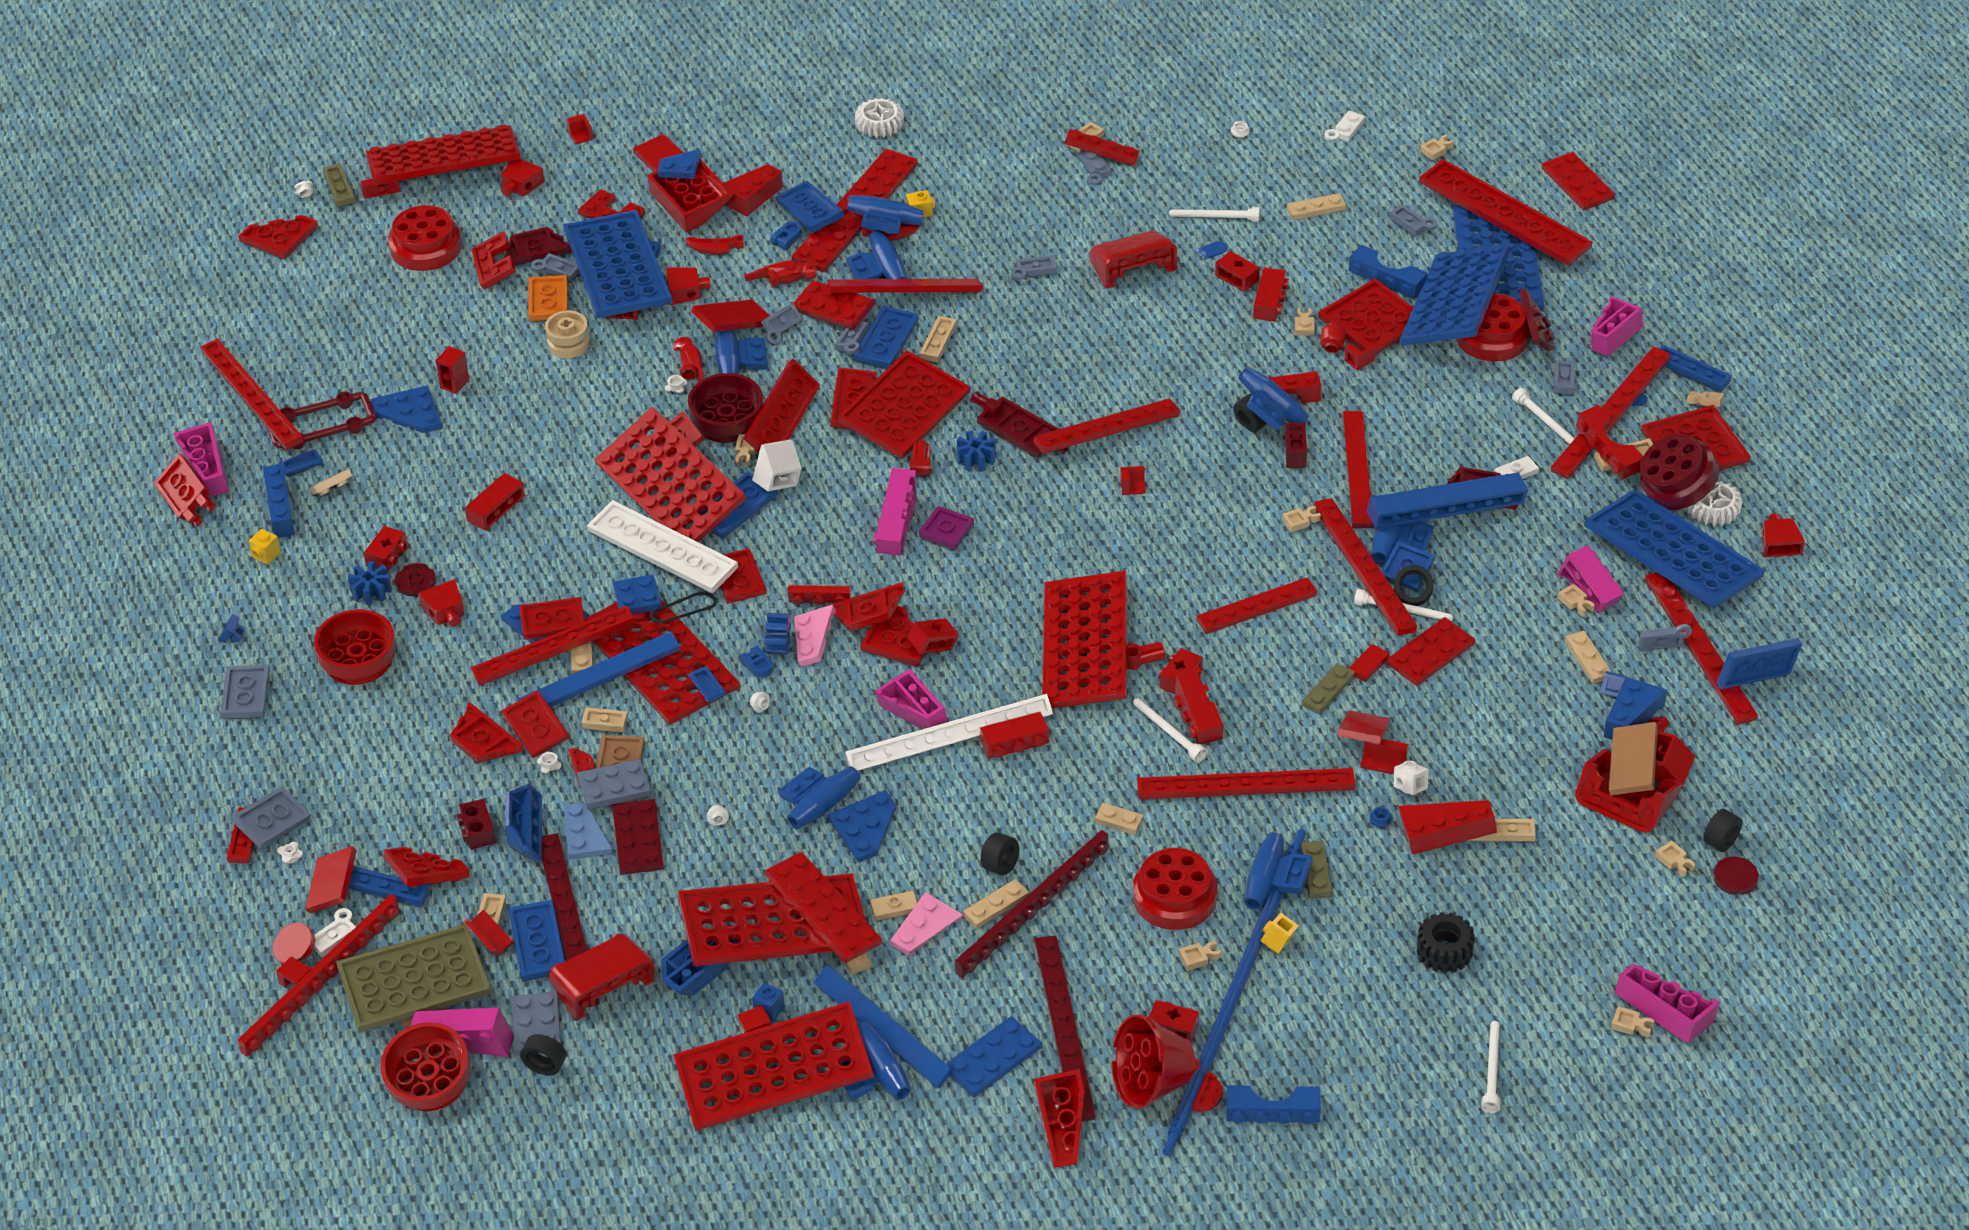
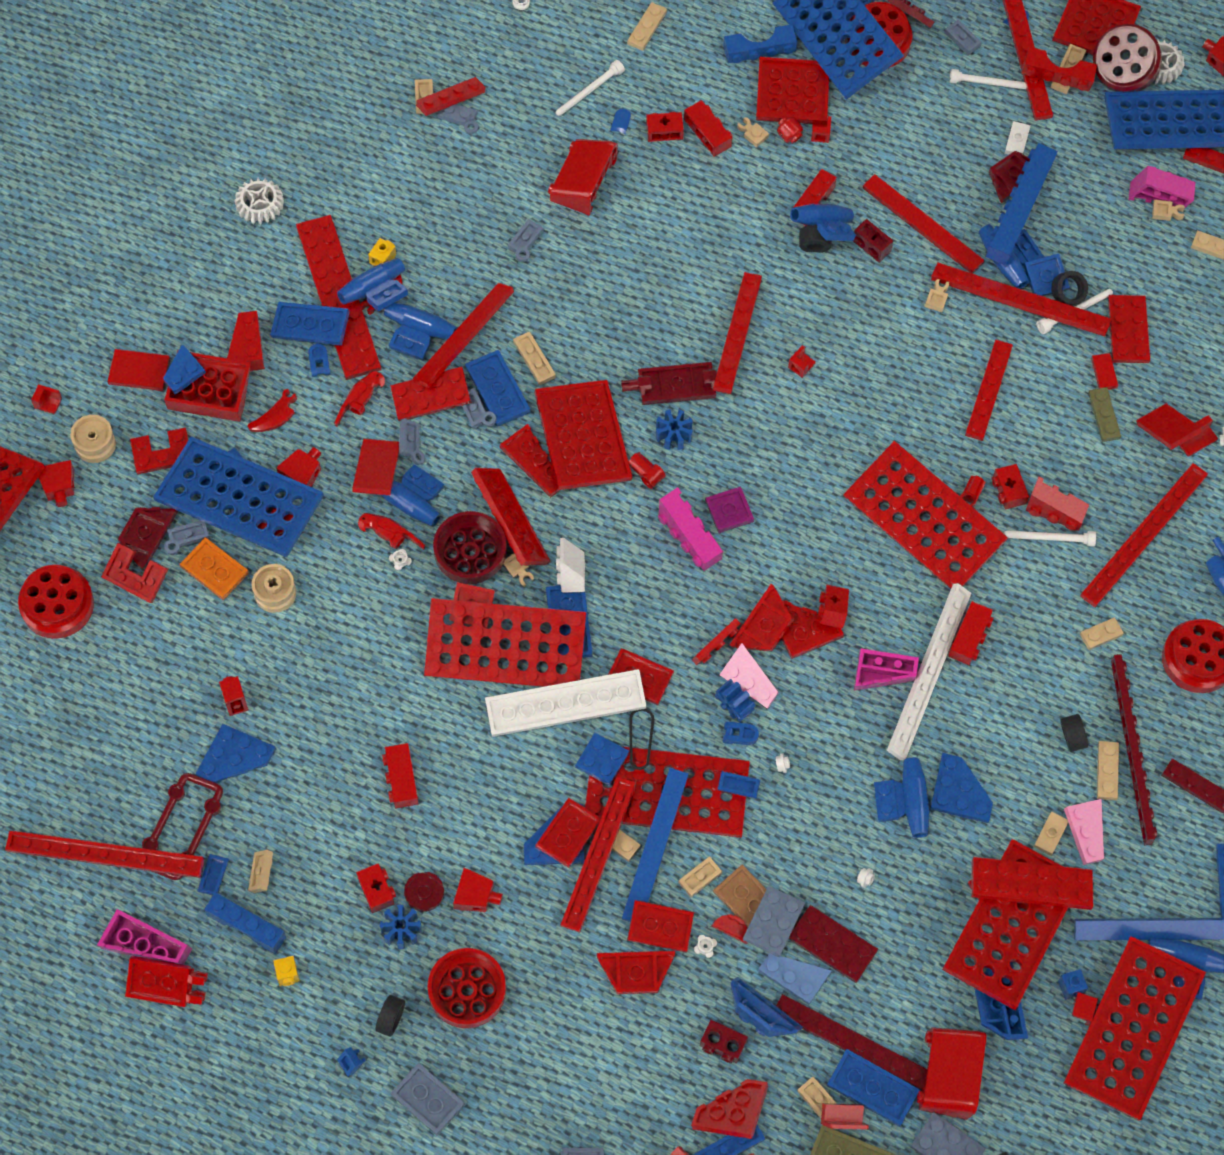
camera: 50 degrees left, 20 degrees up
(291, 631) = (390, 1015): none -> black tyre
(575, 168) = (93, 438): none -> tan wheel

